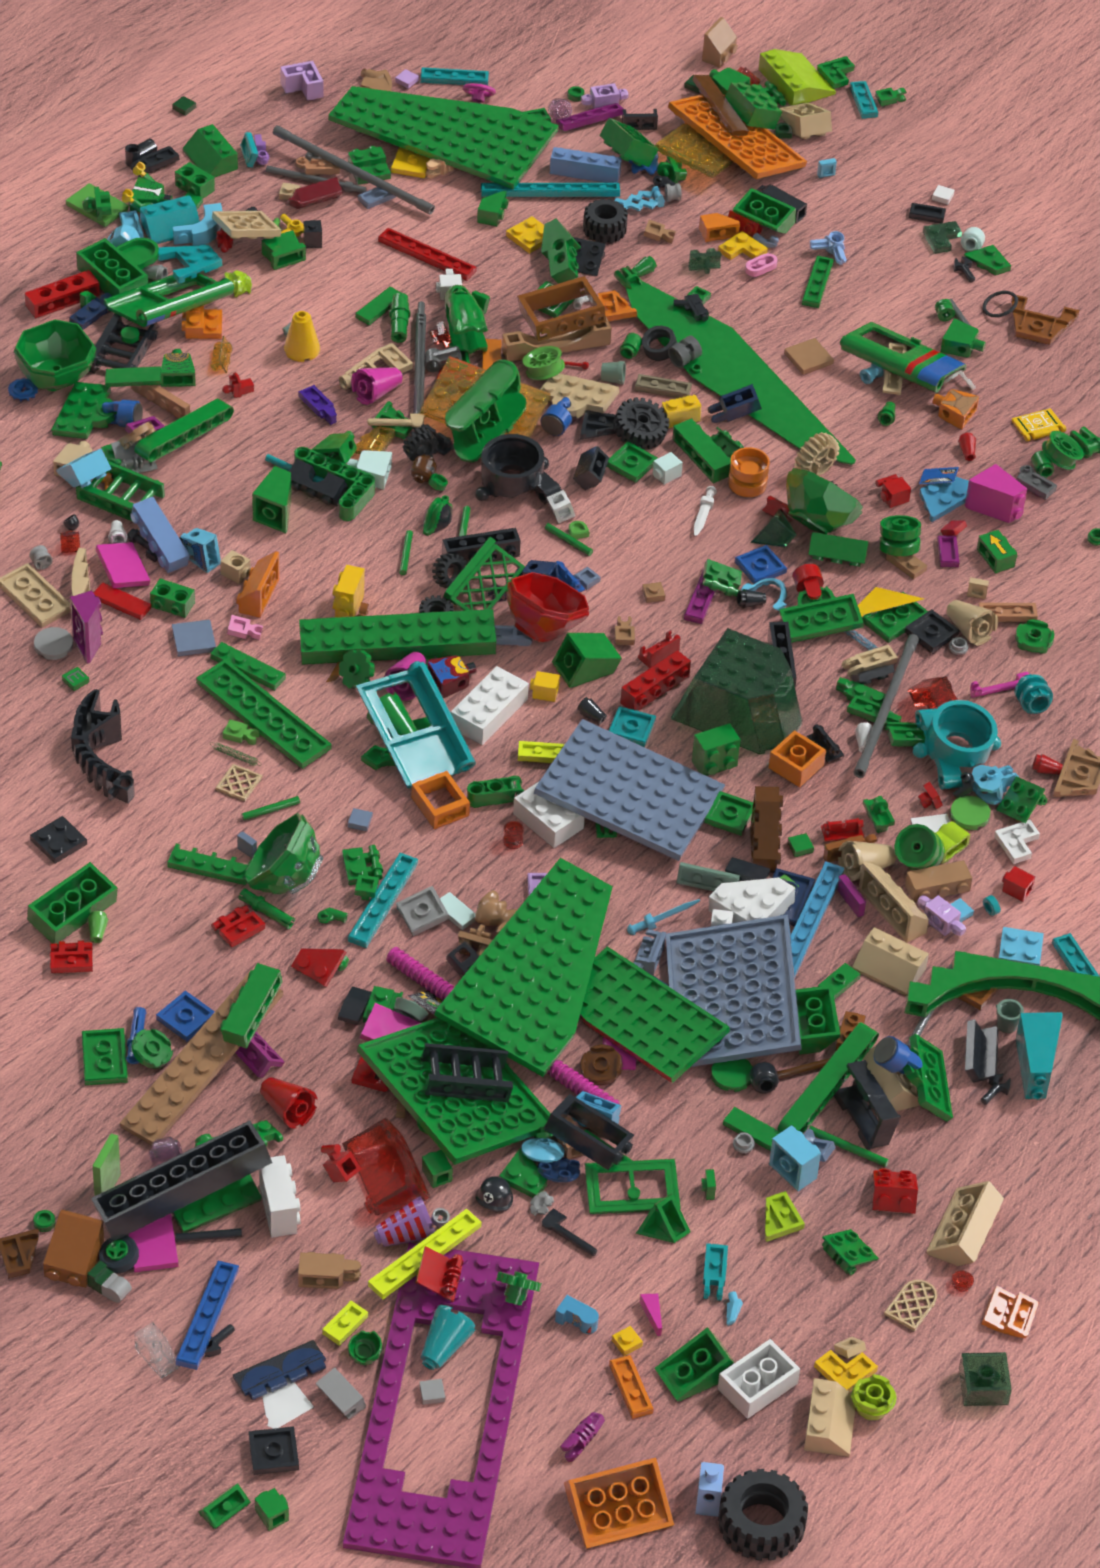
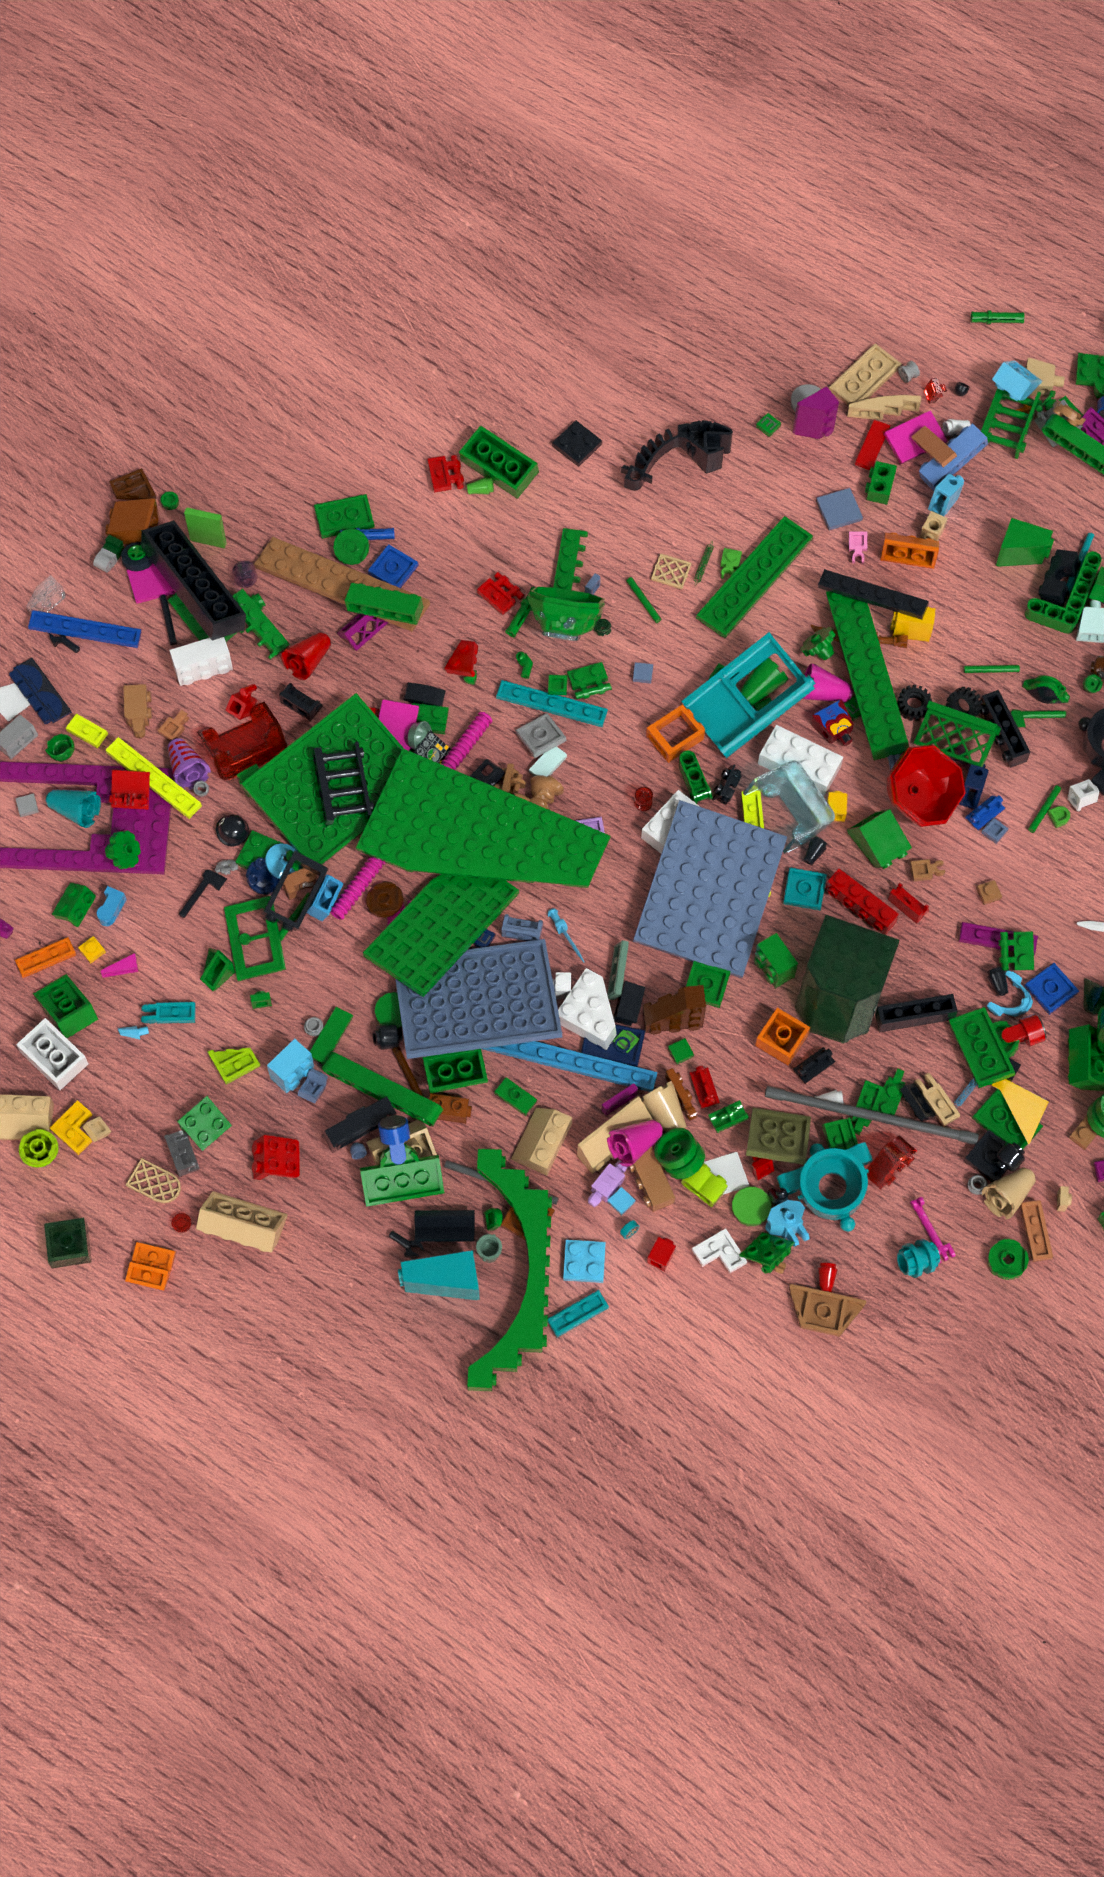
camera: 85 degrees right, 20 degrees up
(147, 542) = (934, 446): none -> nougat tile
(249, 666) = (814, 557): green plate -> none
(320, 608) = (873, 594): none -> black plate
(344, 1117) = (300, 702): none -> black hinge
(354, 1238) = (174, 727): none -> nougat plate
(503, 768) = (729, 778): none -> black hinge
(544, 705) = (800, 797): none -> clear light blue windscreen
(567, 1352) = (74, 904): none -> green bracket
(850, 1147) = (323, 1116): green bar -> none
(883, 1275) = (182, 1153): none -> flat silver hinge
(904, 774) = (778, 1136): none -> olive plate
(910, 876) = (633, 1141): none -> dark pink cone
(938, 611) = (1010, 1156): none -> black head
(973, 1010) = (493, 1218): none -> green tile

